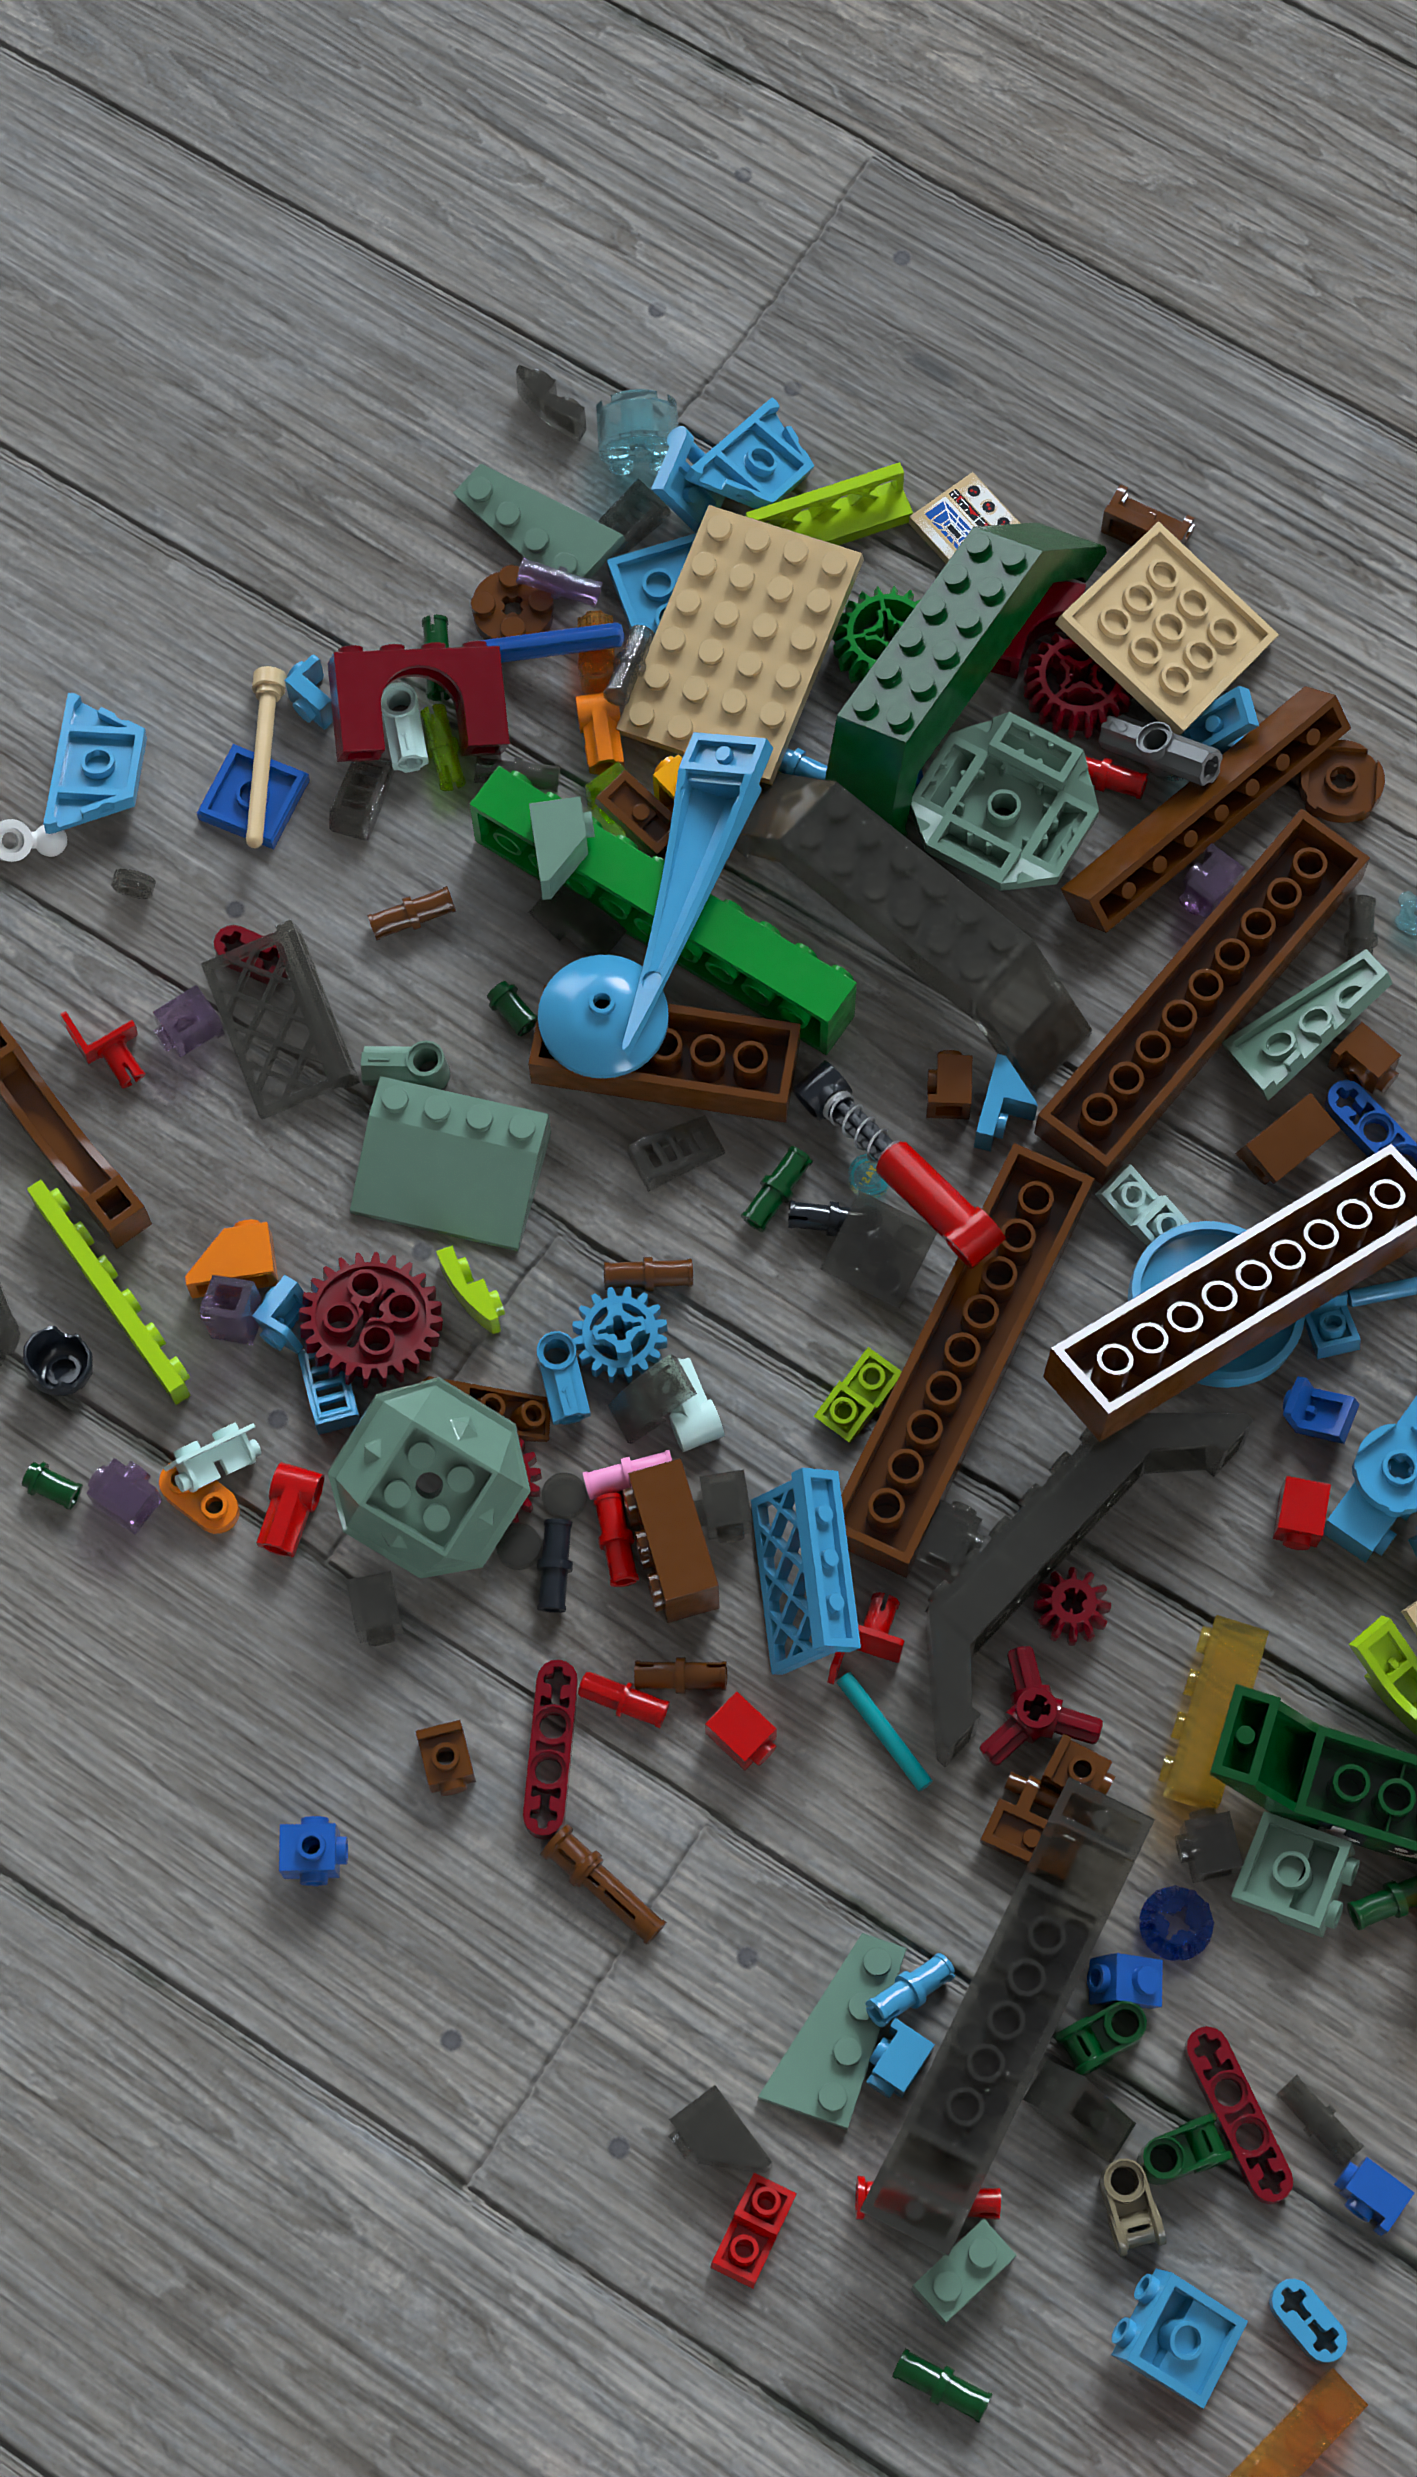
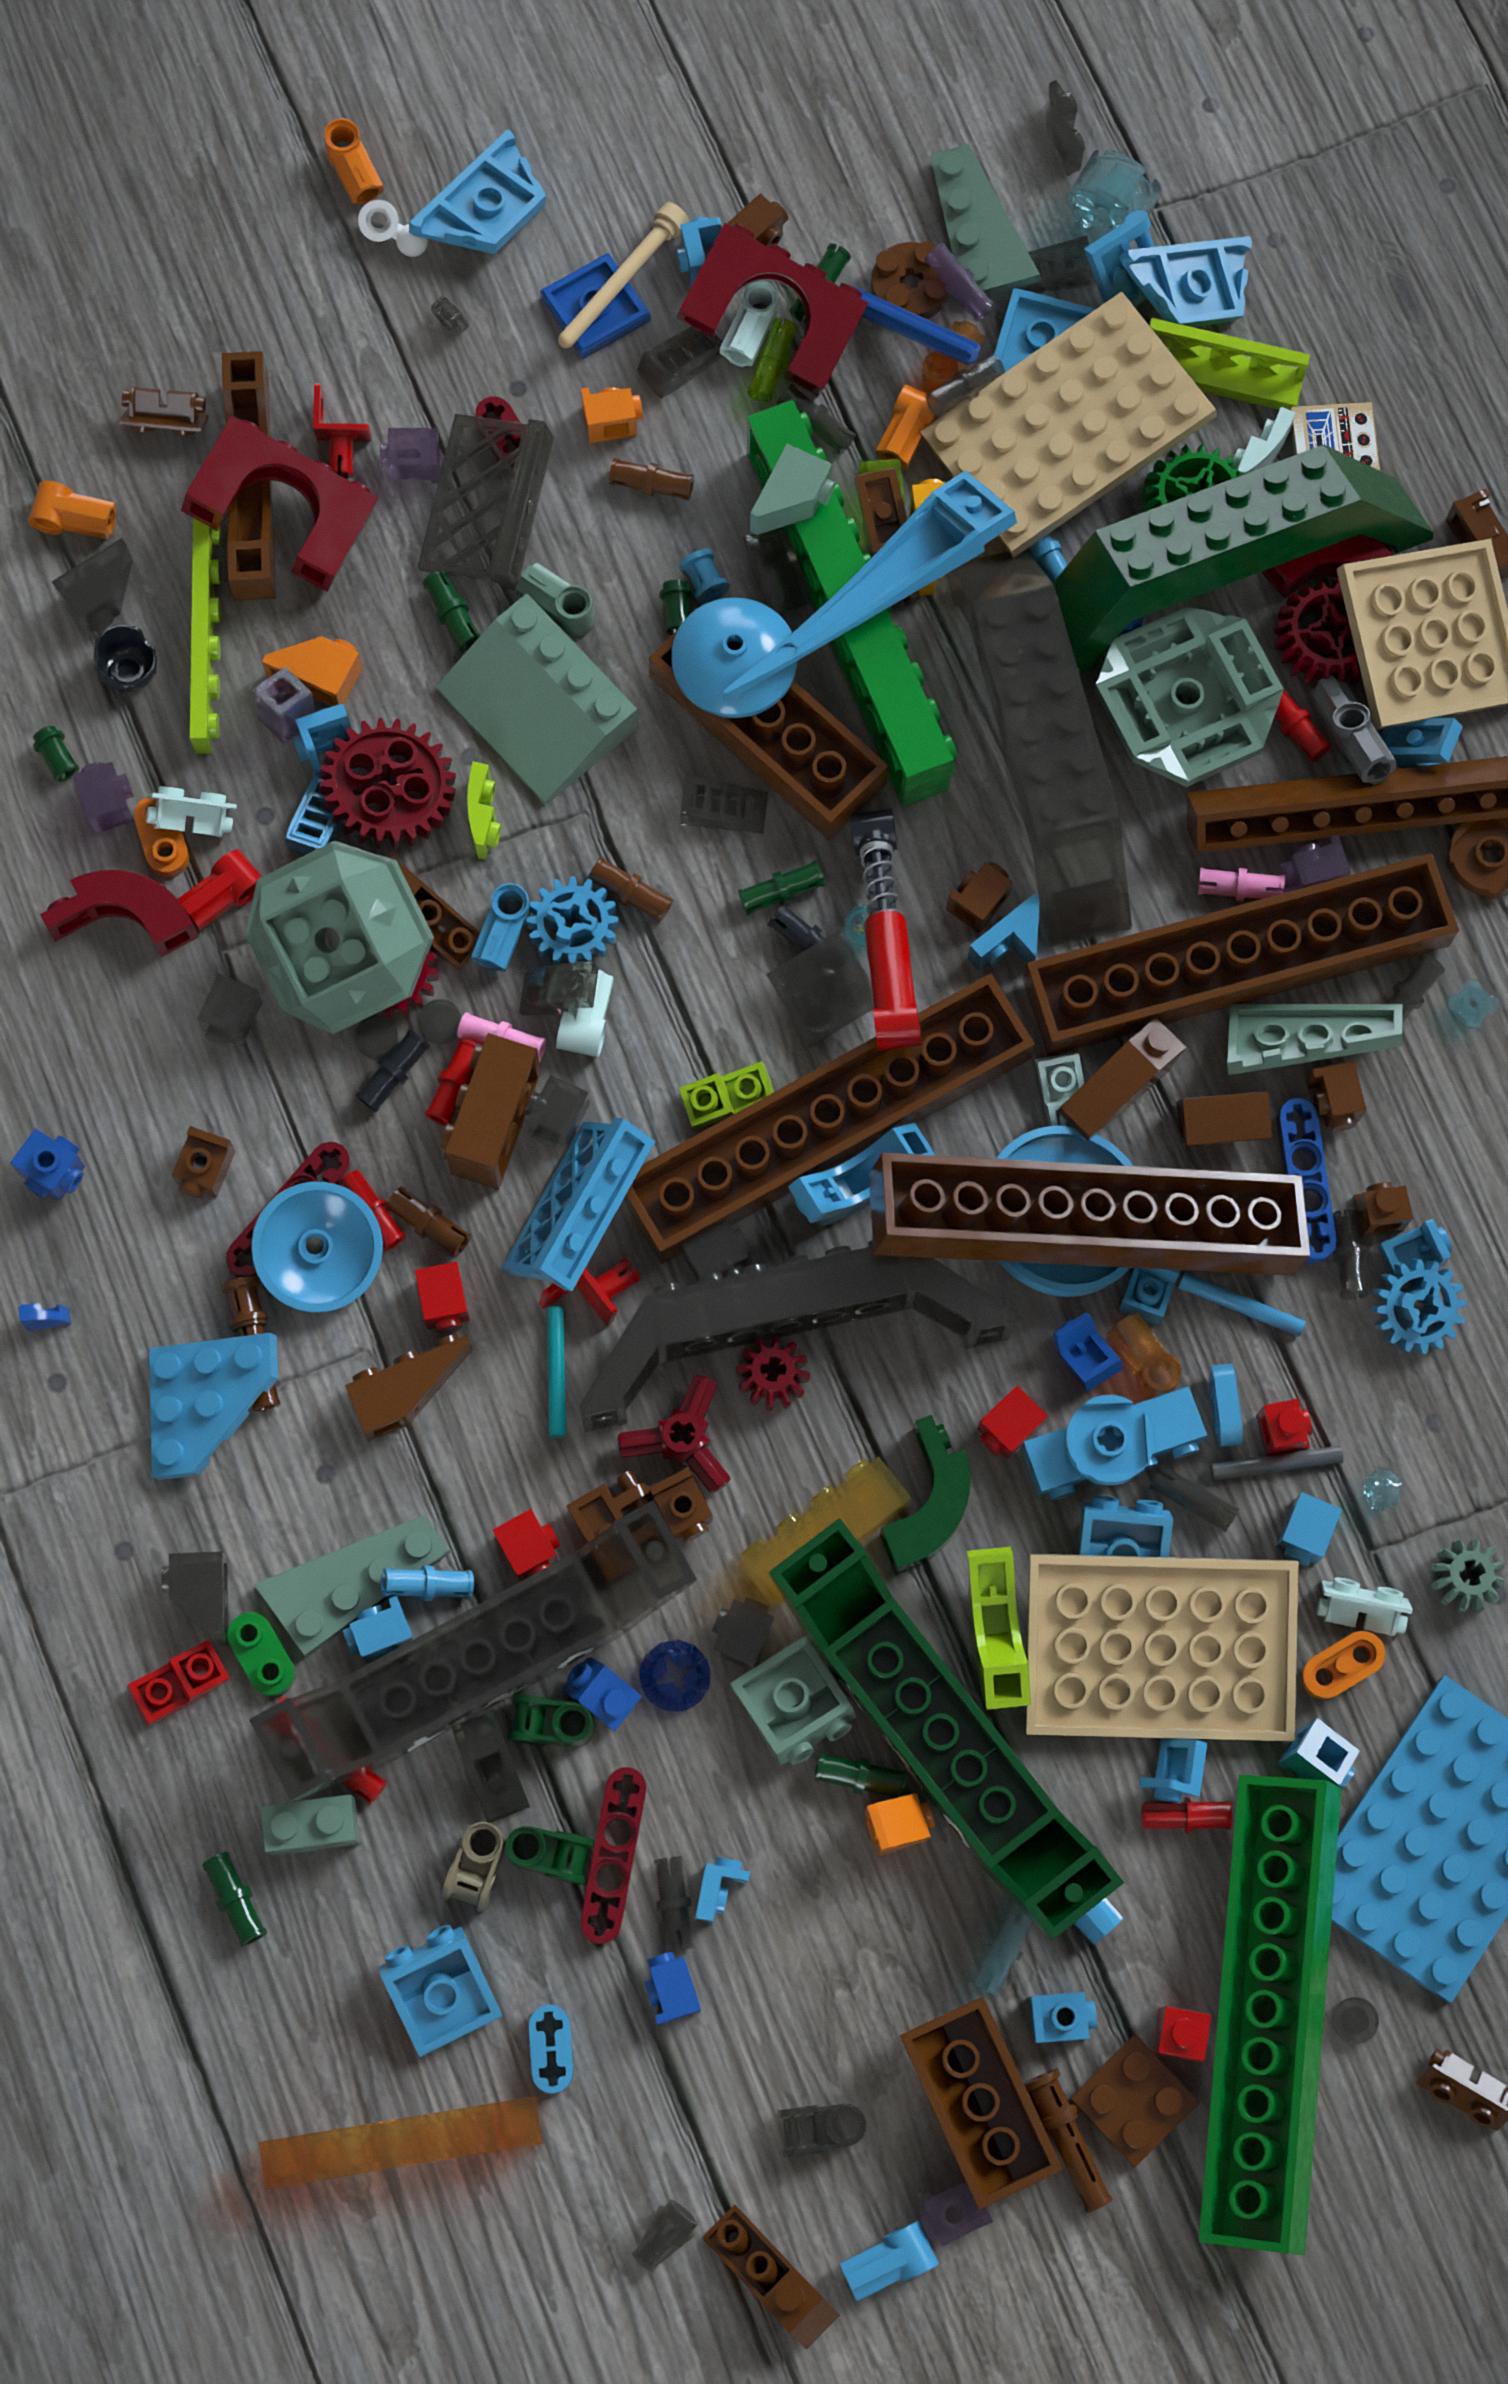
camera: 30 degrees right, 5 degrees up
(152, 1107) = (249, 456): none -> dark red arch
(210, 1567) = (125, 896): none -> dark red arch
(319, 1135) = (451, 610): none -> dark green pin
(335, 879) = (611, 413): none -> orange brick
(349, 630) = (763, 219): none -> reddish brown brick
(396, 1992) = (34, 1318): none -> blue tile
(518, 966) = (704, 576): none -> dark azure bush
(596, 1962) = (203, 1397): none -> dark azure plate
(631, 1755) = (347, 1255): none -> dark azure dish
(762, 1846) = (397, 1394): none -> reddish brown slope
(806, 2156) = (260, 1653): none -> green plate
(912, 560) = (1263, 450): none -> light aqua slope
(972, 1898) = (527, 1544): none -> red brick
(1025, 1390) = (846, 1188): none -> dark azure arch
(1157, 937) = (1239, 884): none -> bright pink pin
(1184, 1161) = (1122, 1079): none -> reddish brown slope
(1297, 1621) = (931, 1528): none -> dark green arch
(1345, 2088) = (712, 1895): none -> dark azure bracket
(1365, 1382) = (1144, 1353): none -> clear orange piece

